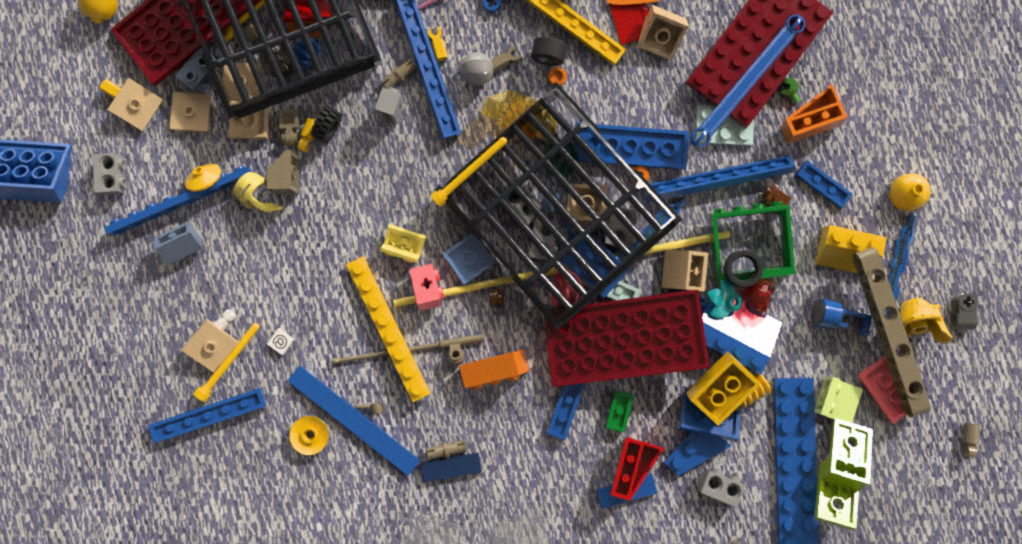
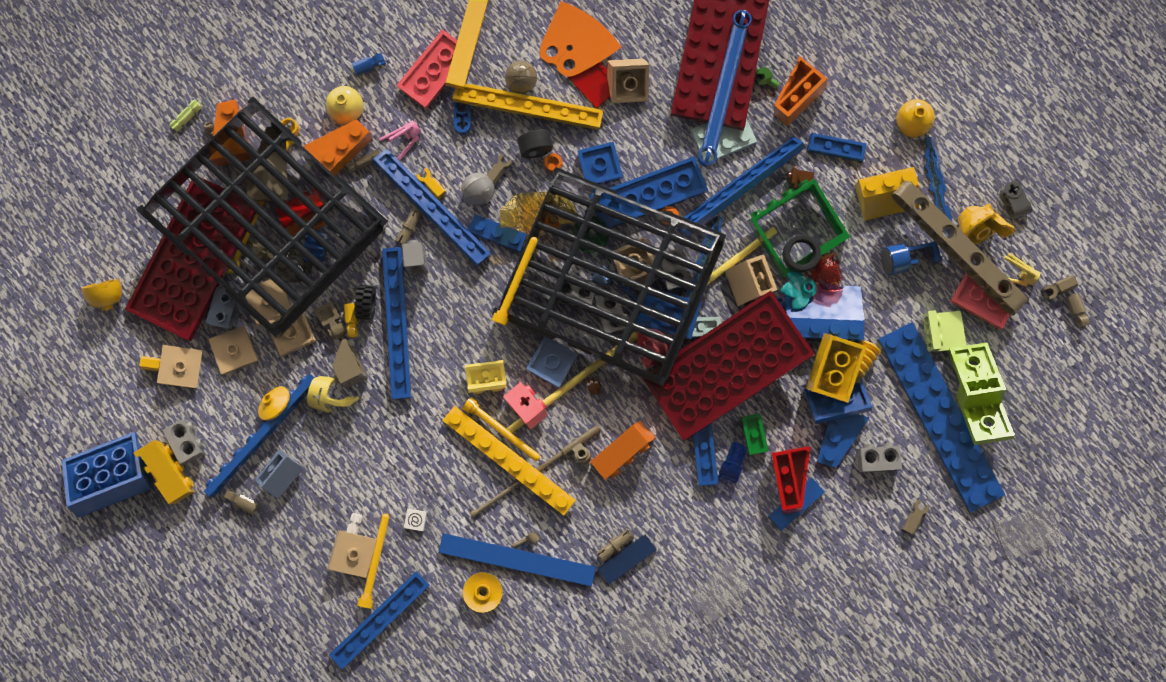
camera: 20 degrees left, 5 degrees down
(80, 199) = (166, 471): none -> yellow wedge
(135, 252) = (242, 502): none -> dark tan bar
(346, 158) = (396, 323): none -> blue plate
(378, 265) = (471, 406): none -> yellow piece
(471, 113) = (493, 232): none -> blue plate
(585, 430) = (731, 467): none -> clear blue piece
(599, 97) = (600, 163): none -> blue plate
(940, 385) = (1028, 274): none -> light yellow plant
(966, 411) = (1061, 286): none -> dark tan bar

